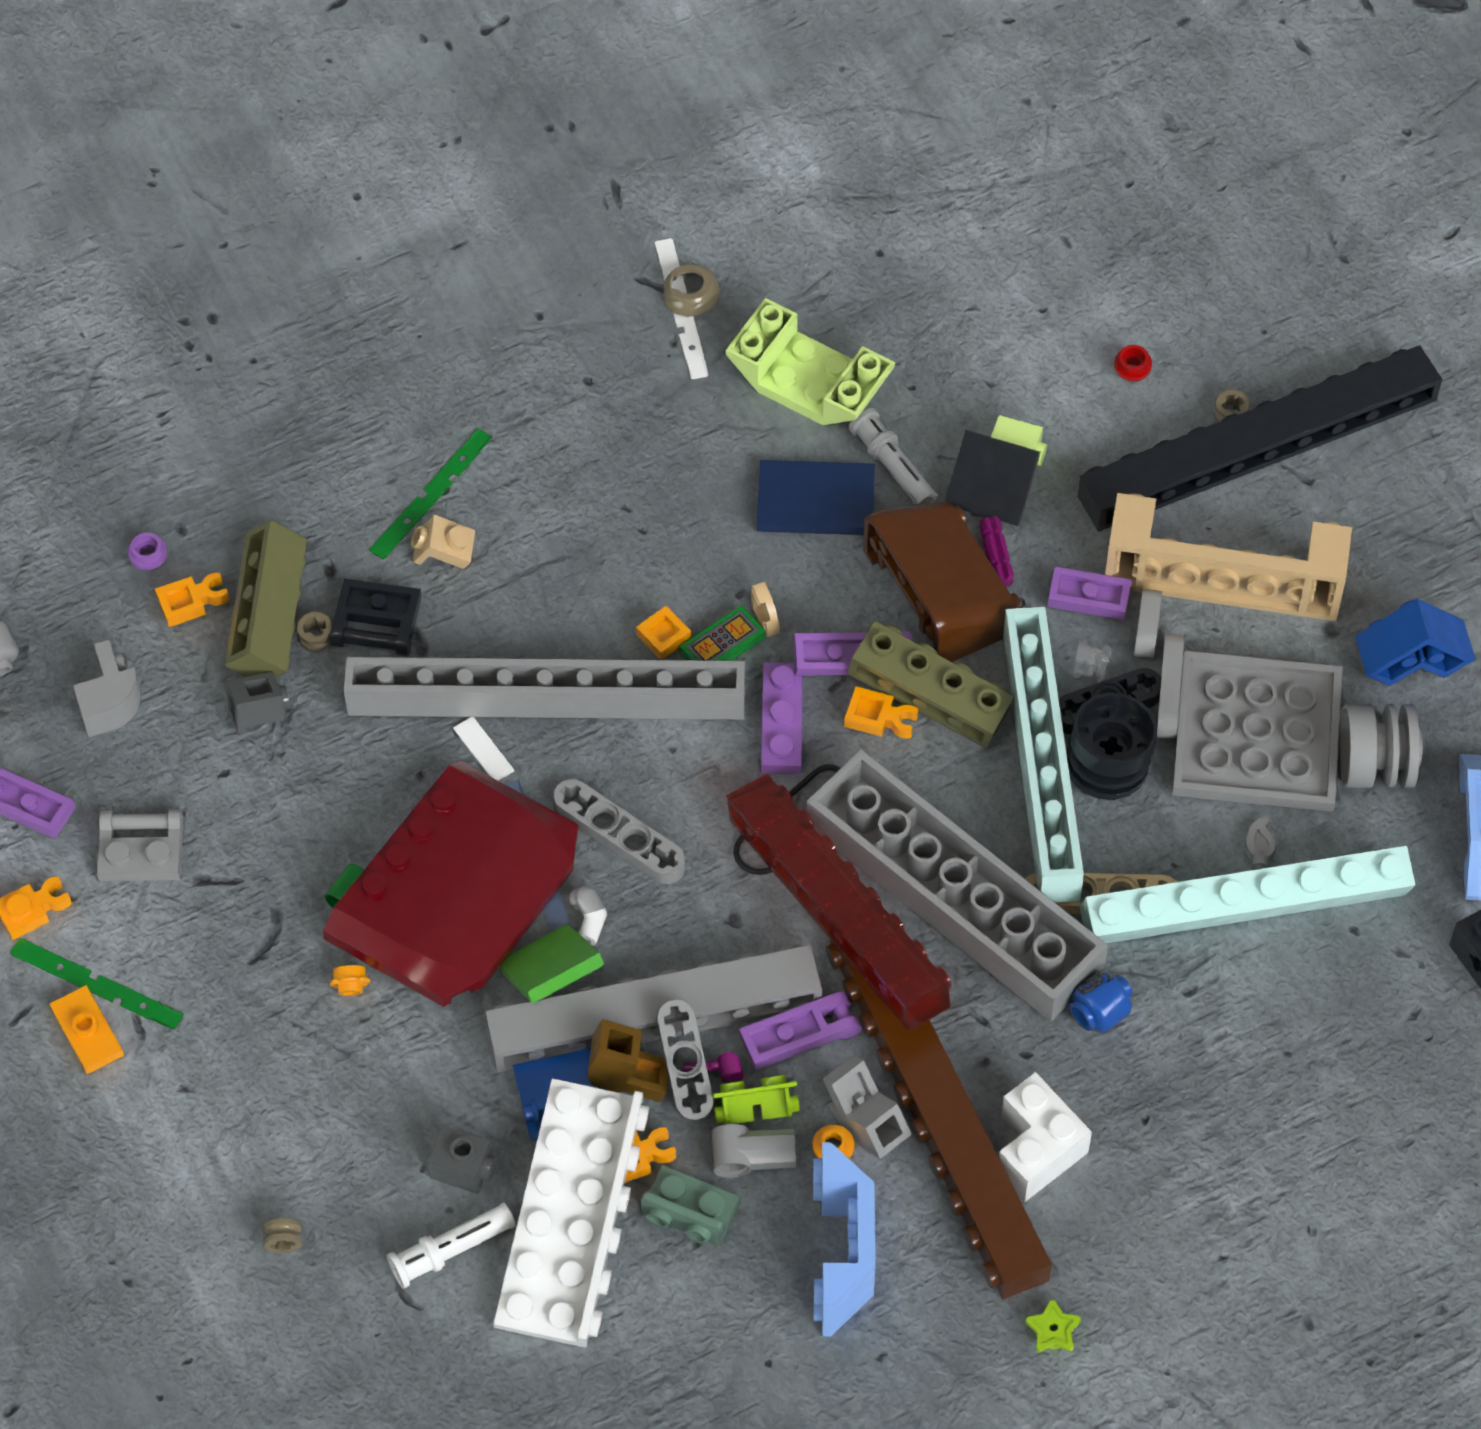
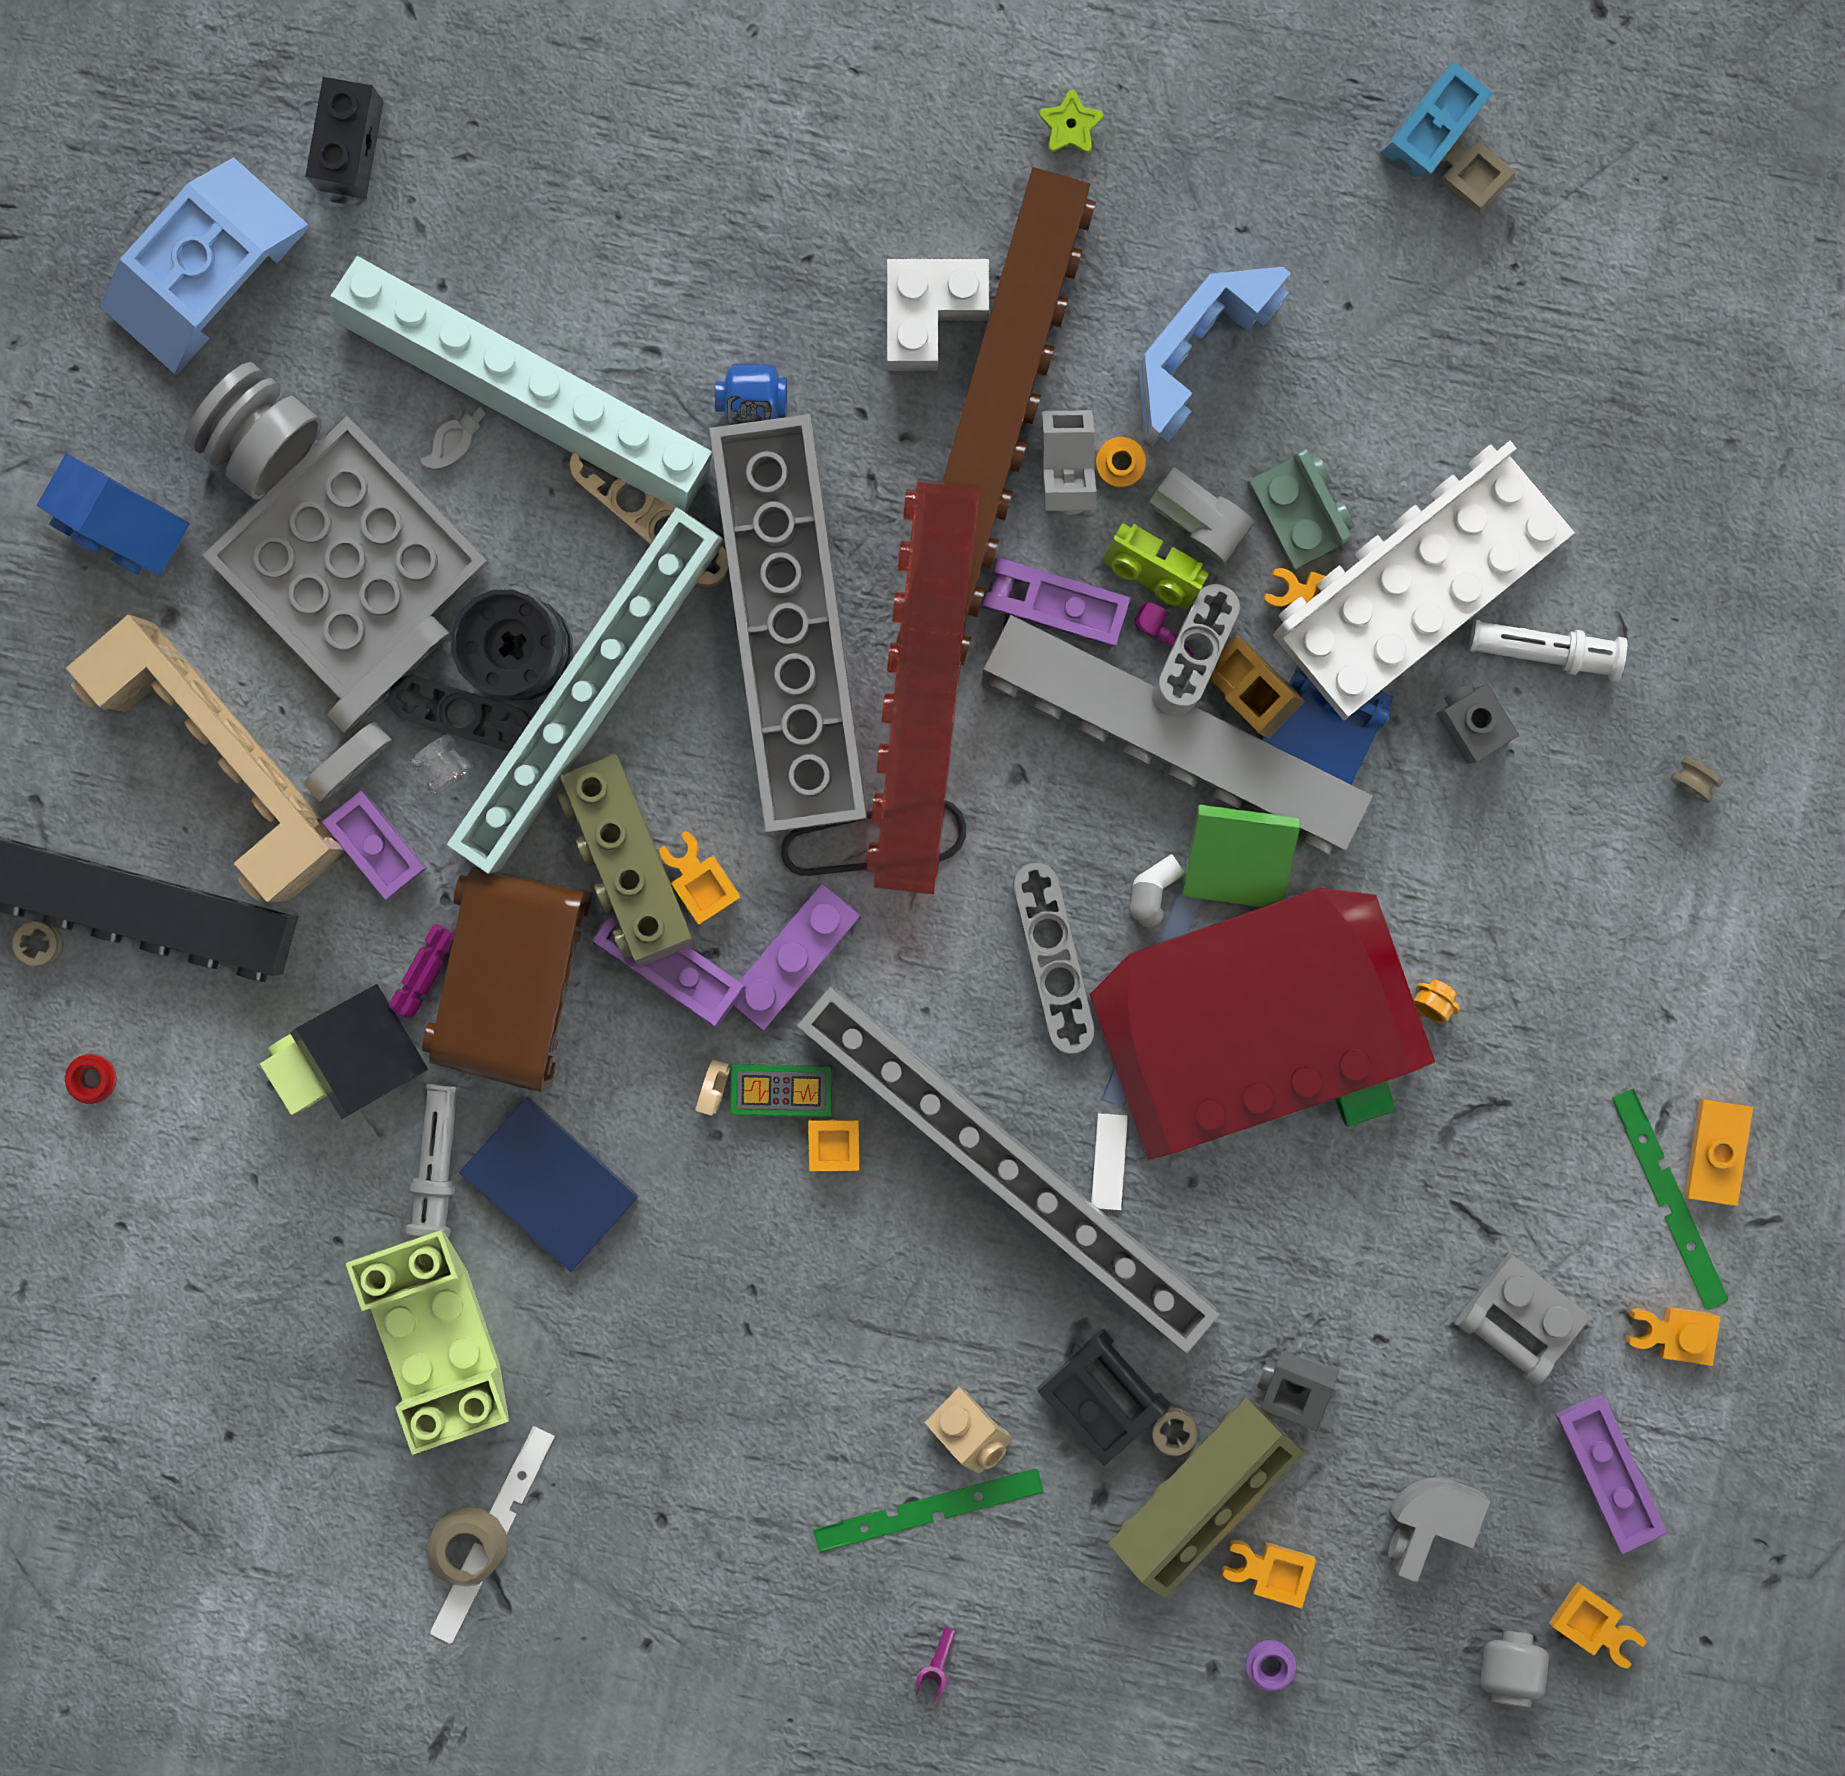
camera: 140 degrees left, 30 degrees up
(356, 416) = (937, 1664): none -> magenta hand

